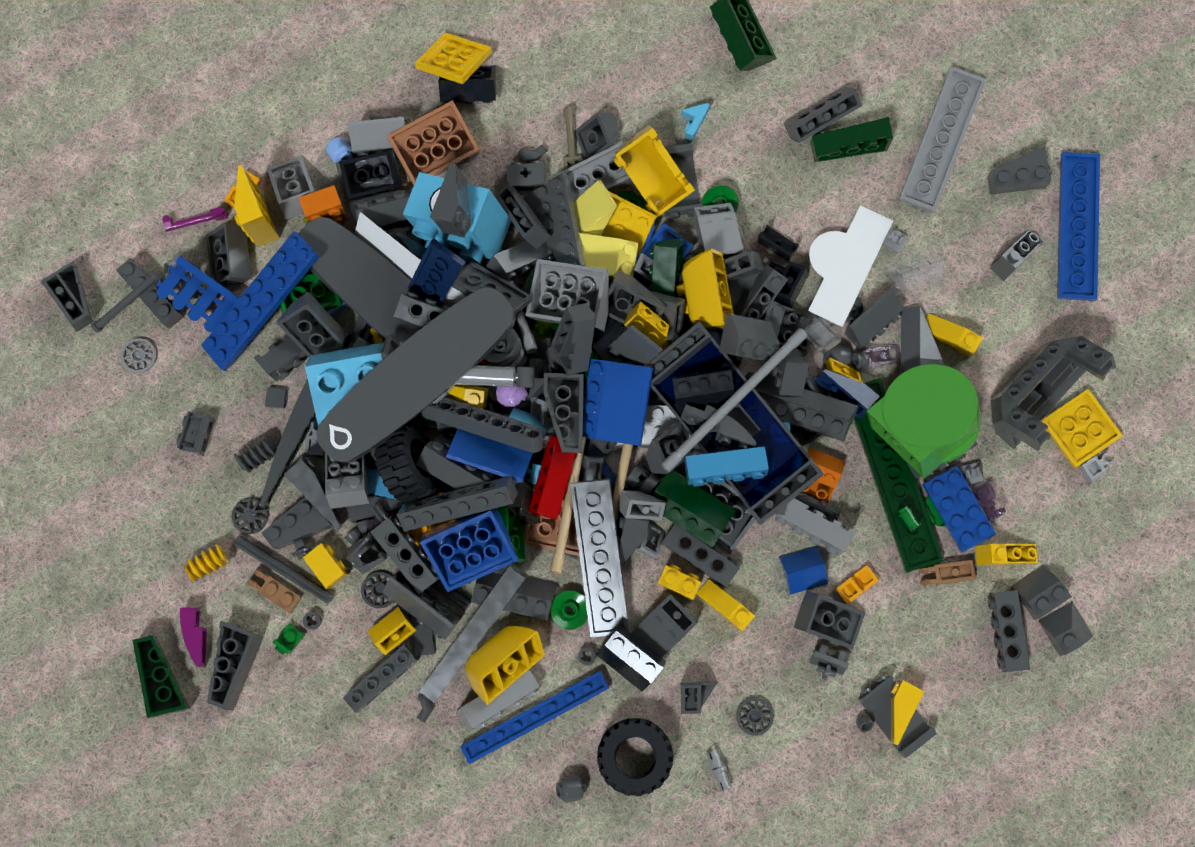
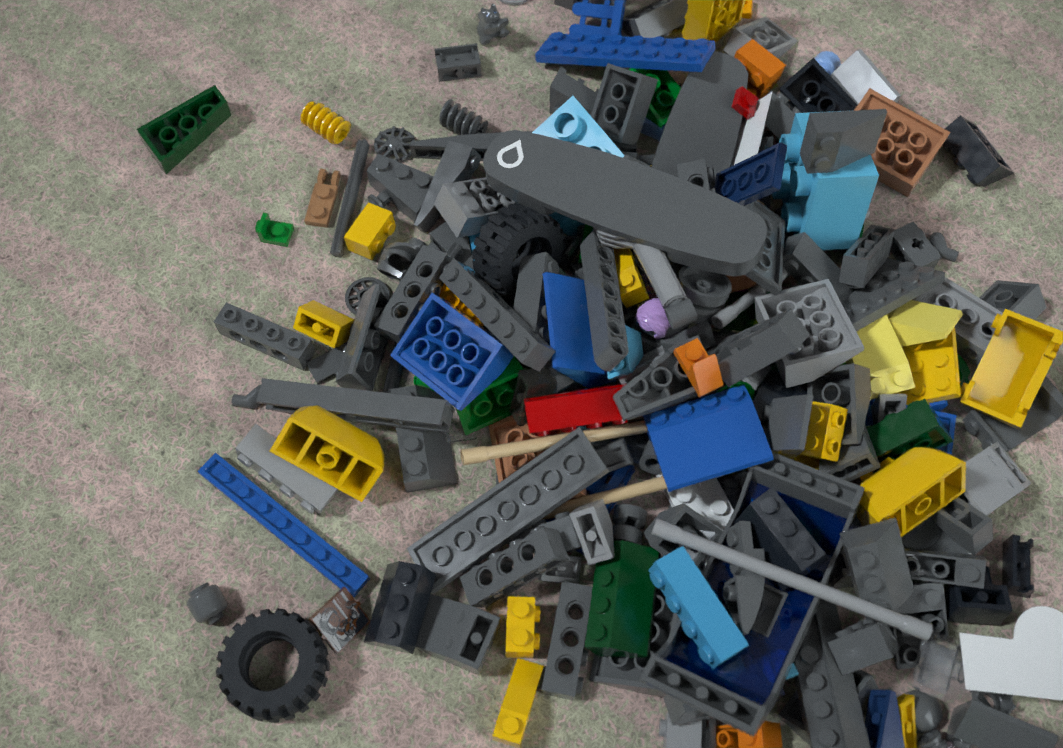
camera: 60 degrees right, 15 degrees down
(172, 392) = (491, 25): none -> dark grey animal
(193, 635) = (243, 143): magenta slope -> none
(232, 664) = (224, 187): dark grey wedge -> none
(275, 398) = (531, 117): dark grey tile -> none
(306, 622) = (300, 241): dark grey bush -> none
(356, 235) = (745, 102): none -> red plate
(453, 58) = (995, 122): yellow plate -> none
(568, 113) = (1014, 264): dark tan hinge -> none
(568, 384) = (699, 367): none -> orange slope
(579, 610) = (423, 496): green dish -> none
(580, 655) = (380, 546): dark grey bush -> none
(622, 701) = (339, 620): none -> piece
(640, 598) = (549, 554): none -> dark grey brick
(694, 696) = (383, 712): dark grey slope -> none
(721, 192) = (1036, 469): green dish -> none

